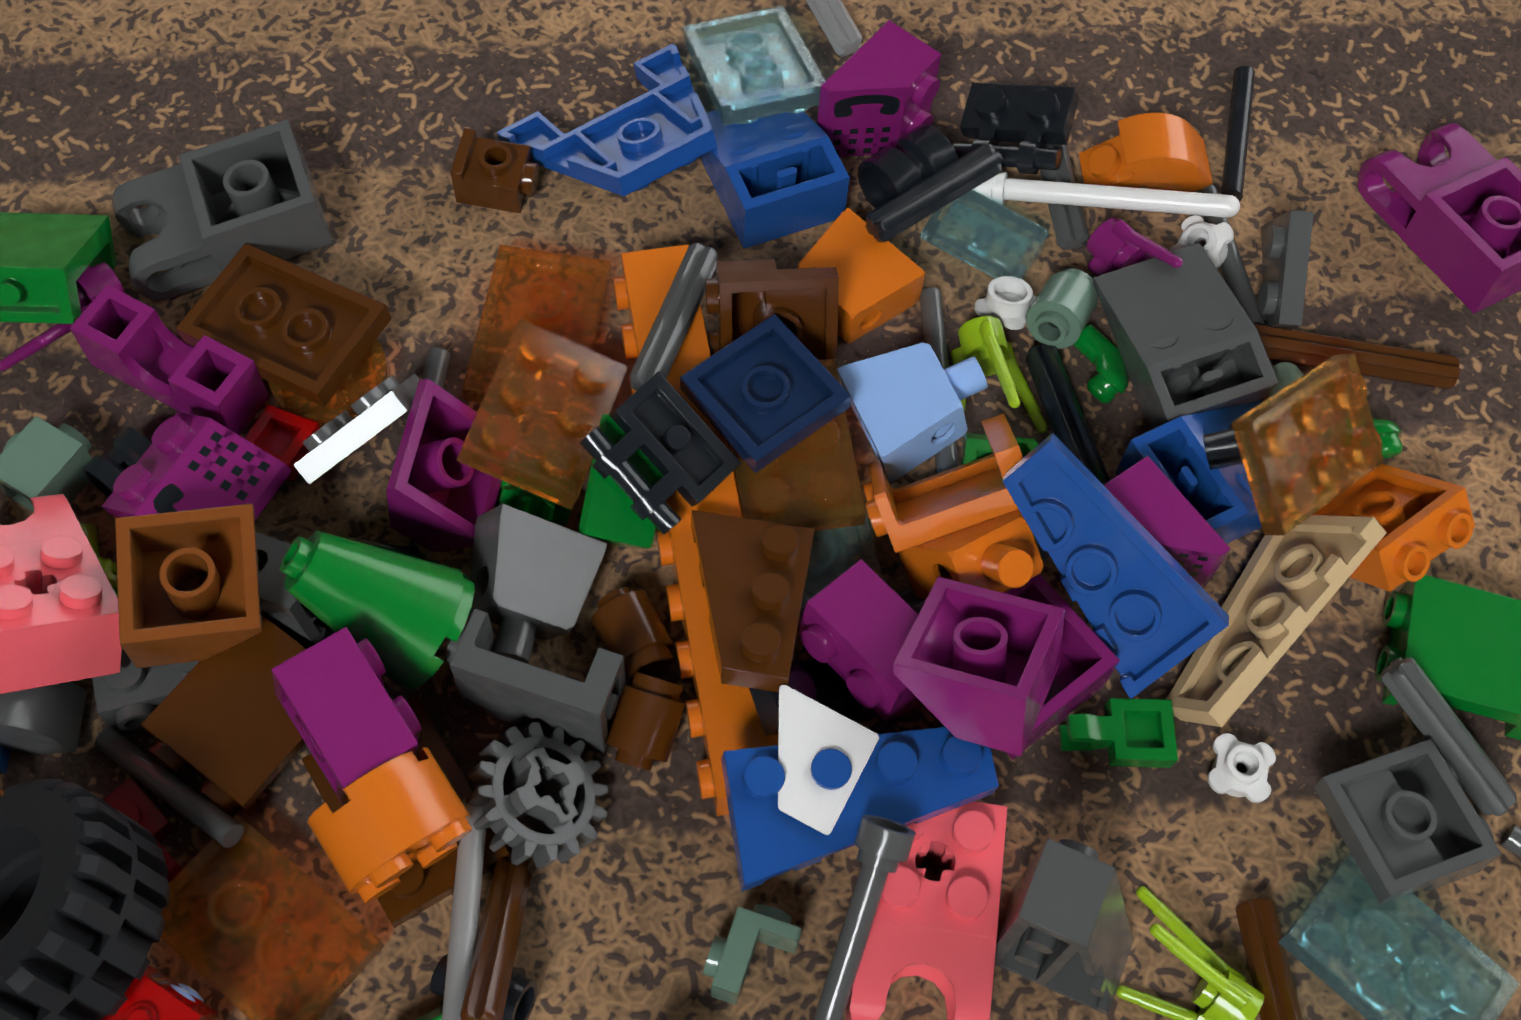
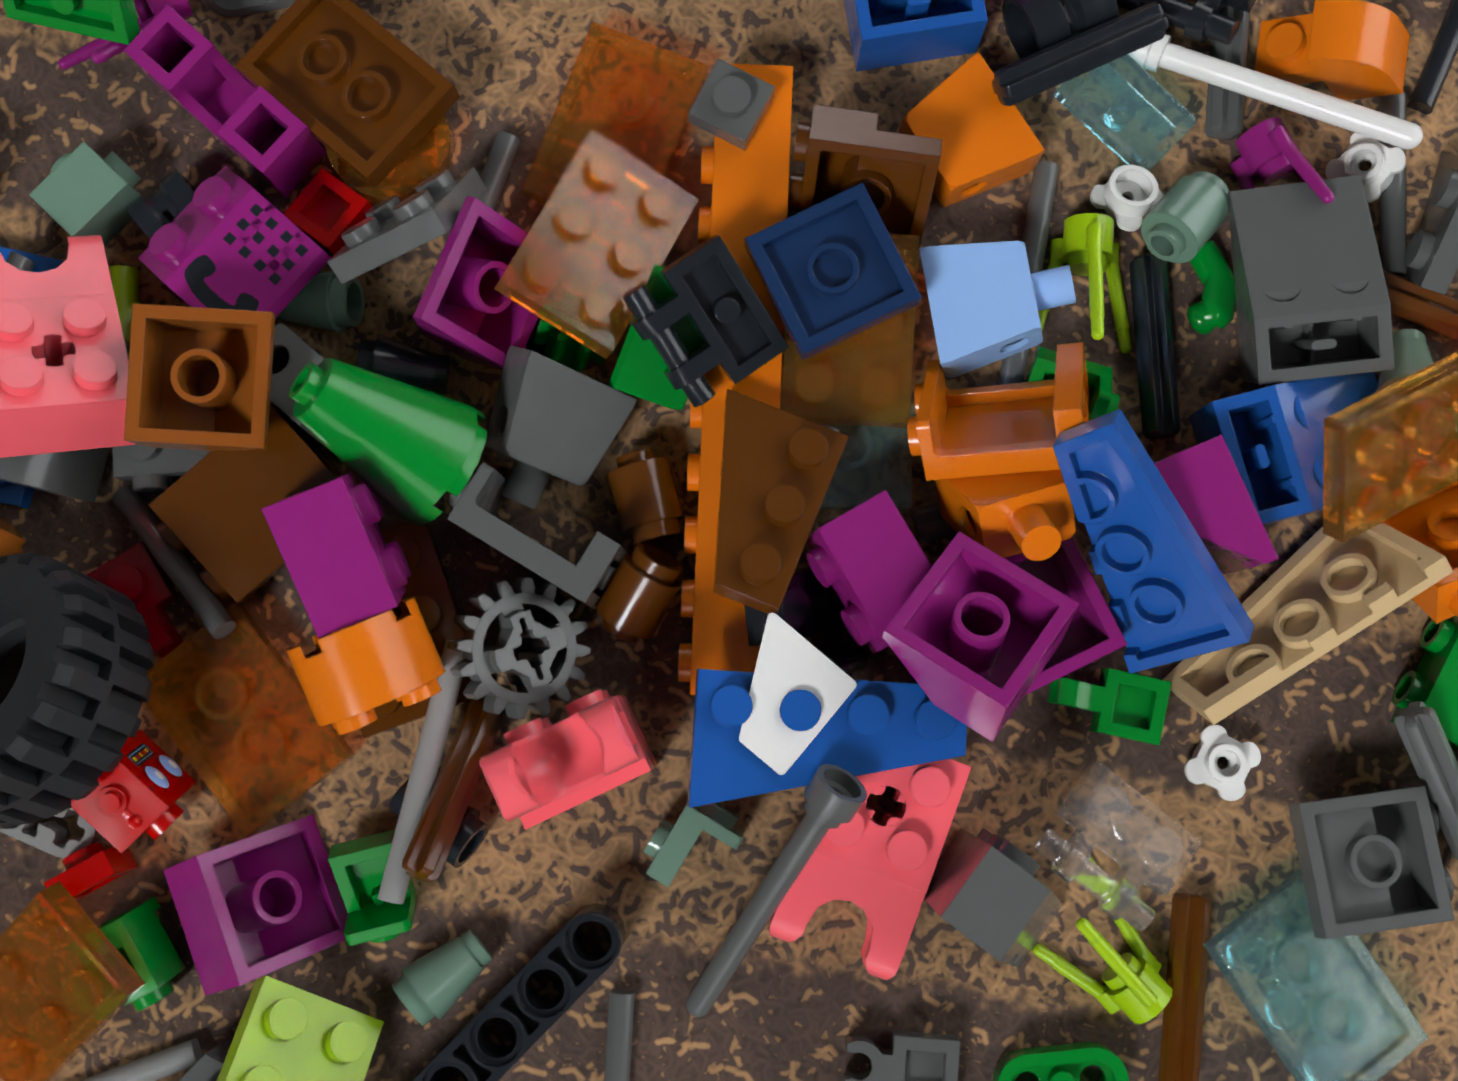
camera: 20 degrees right, 20 degrees up
(292, 516) = (327, 304): none -> sand green cone
(618, 873) = (567, 762): none -> coral brick
(640, 279) = (731, 104): none -> dark grey plate
(675, 315) = (757, 157): dark grey axle -> none
(1178, 854) = (1128, 830): none -> clear plate
(1222, 449) = (1307, 435): black hand -> none

